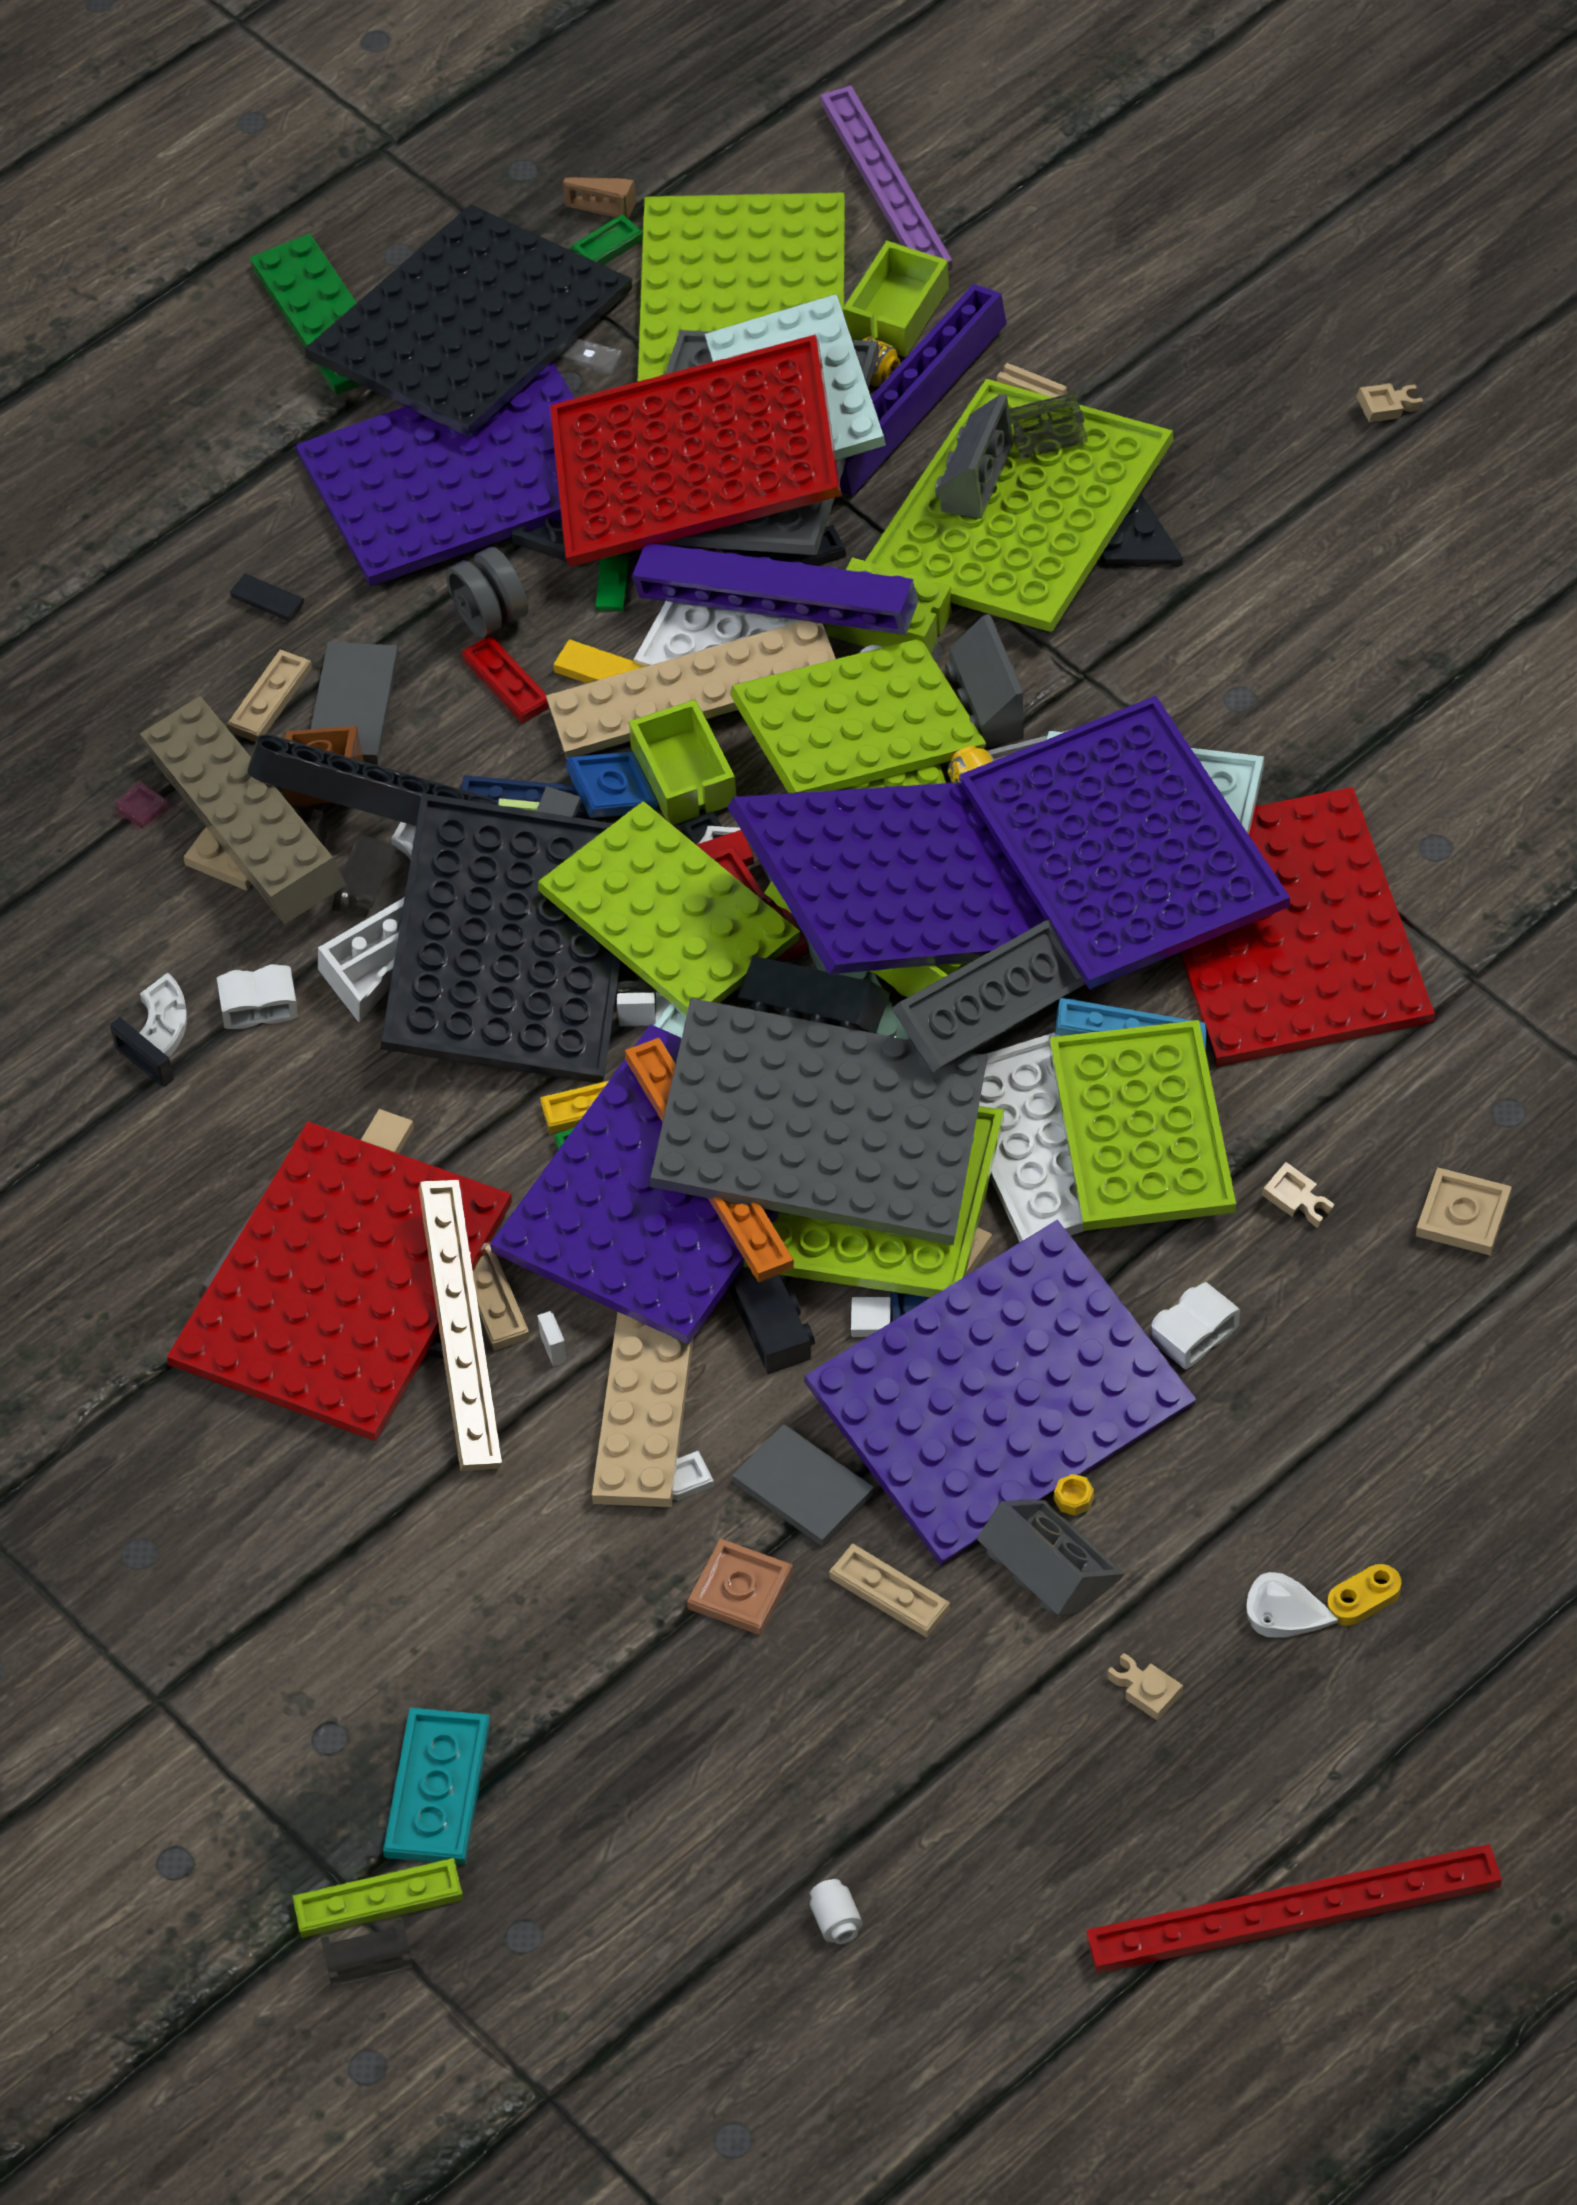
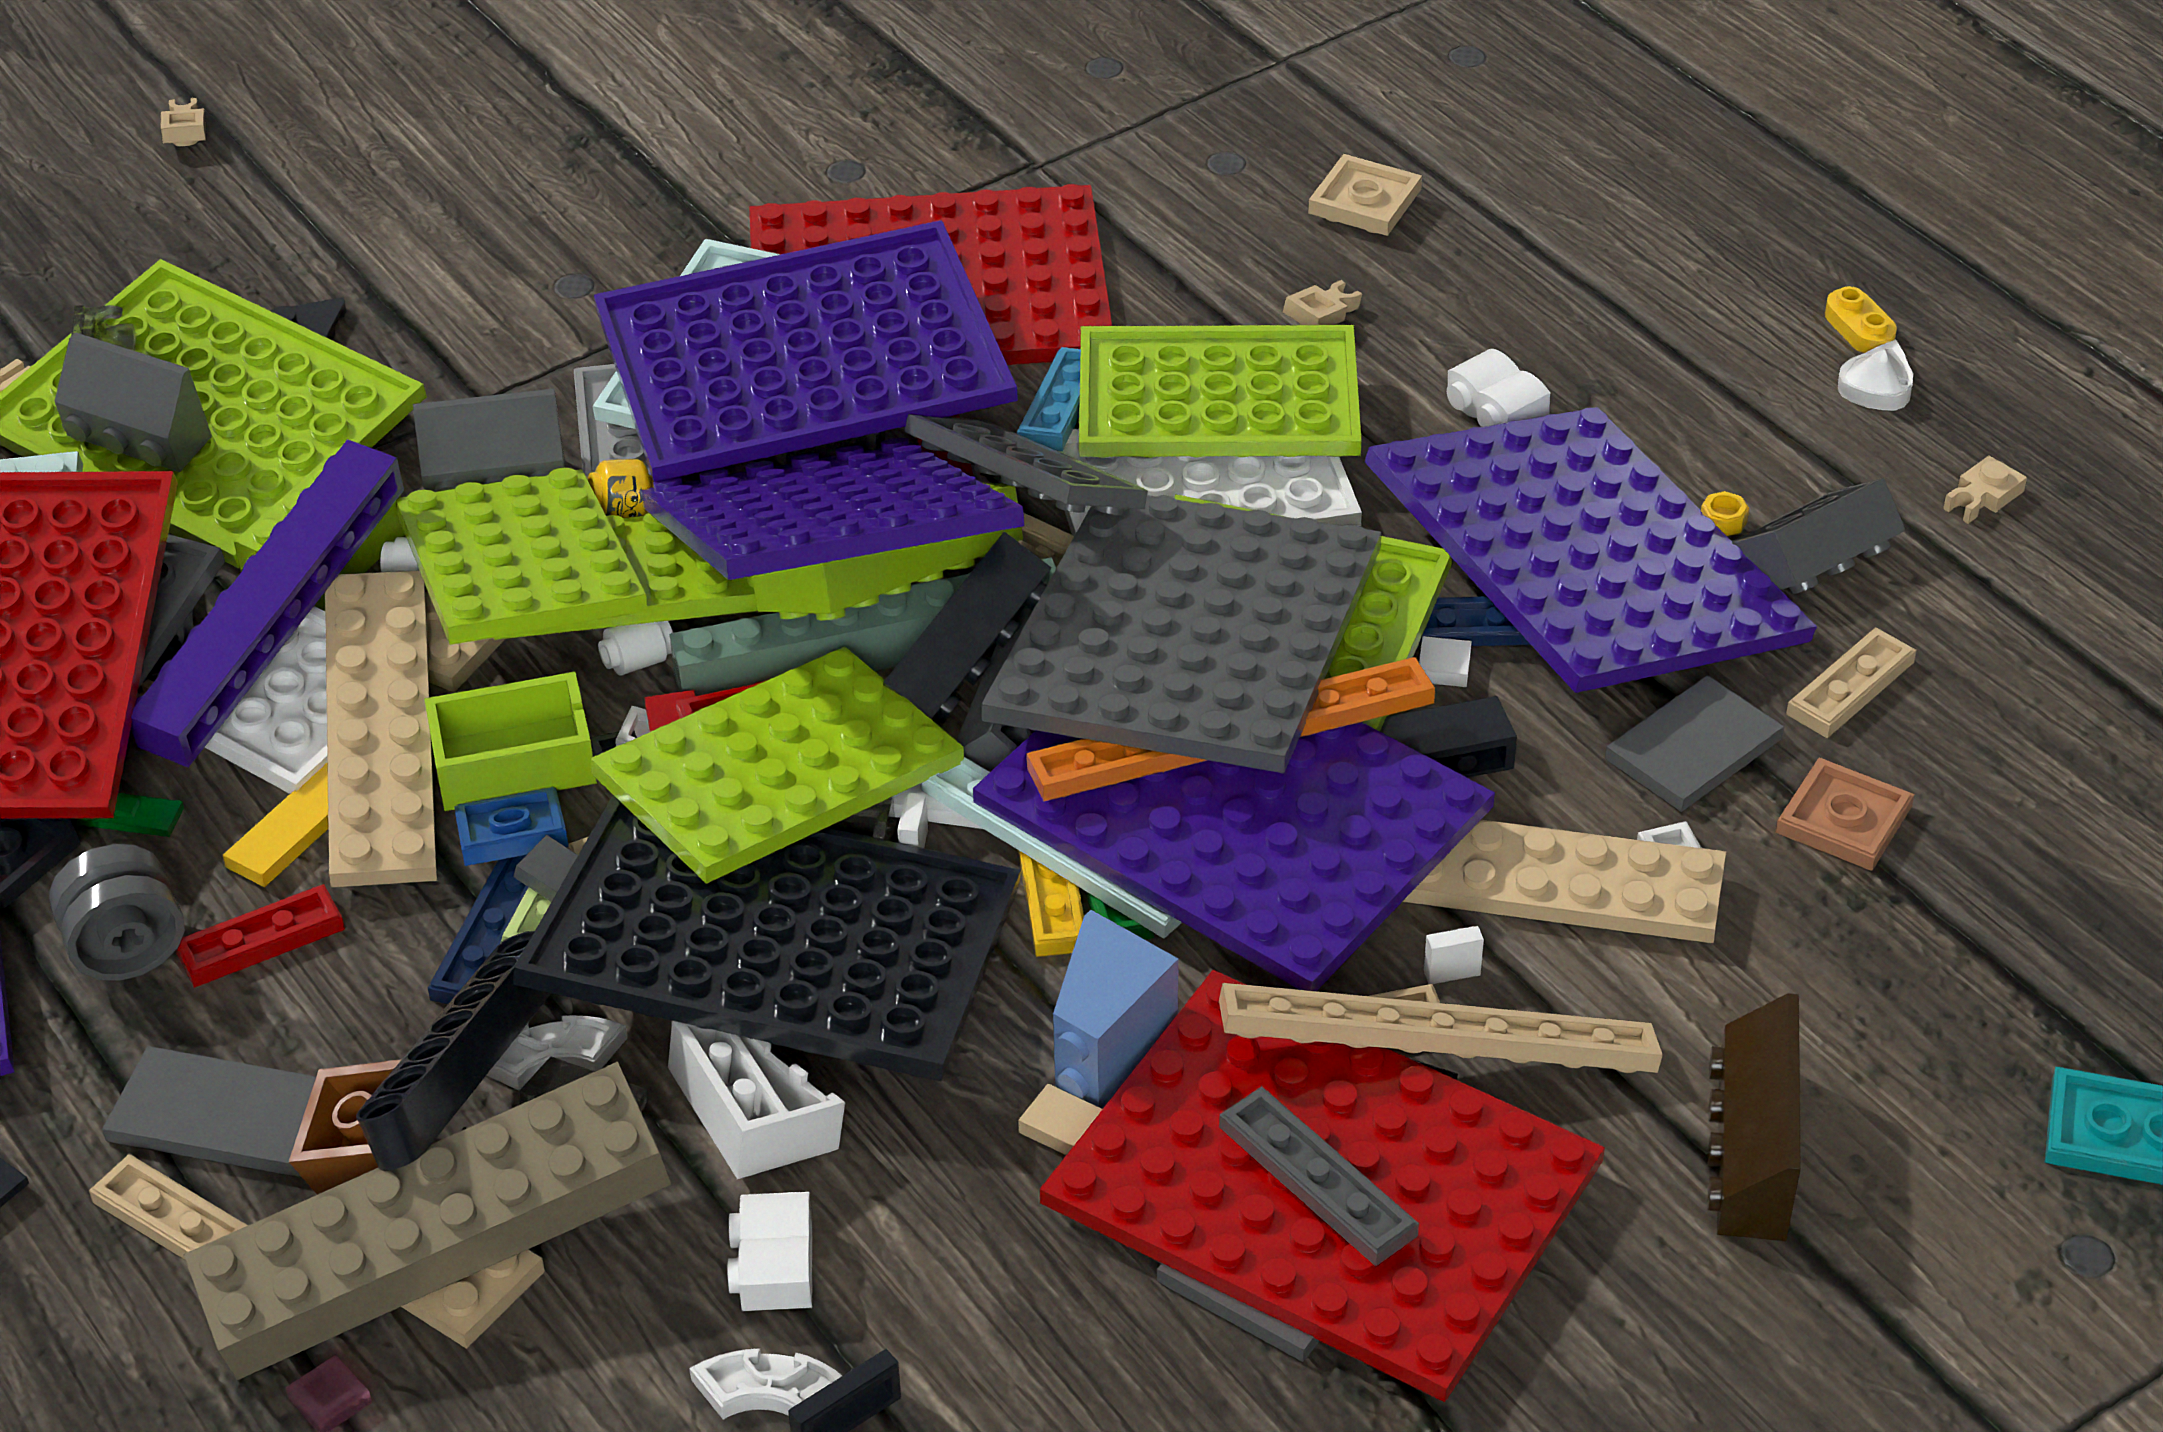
camera: 85 degrees left, 10 degrees down
(320, 1264) = (1319, 1176): none -> dark grey tile
(404, 1525) = (1756, 1122): none -> dark brown slope
(460, 1130) = (1110, 1008): none -> medium blue slope

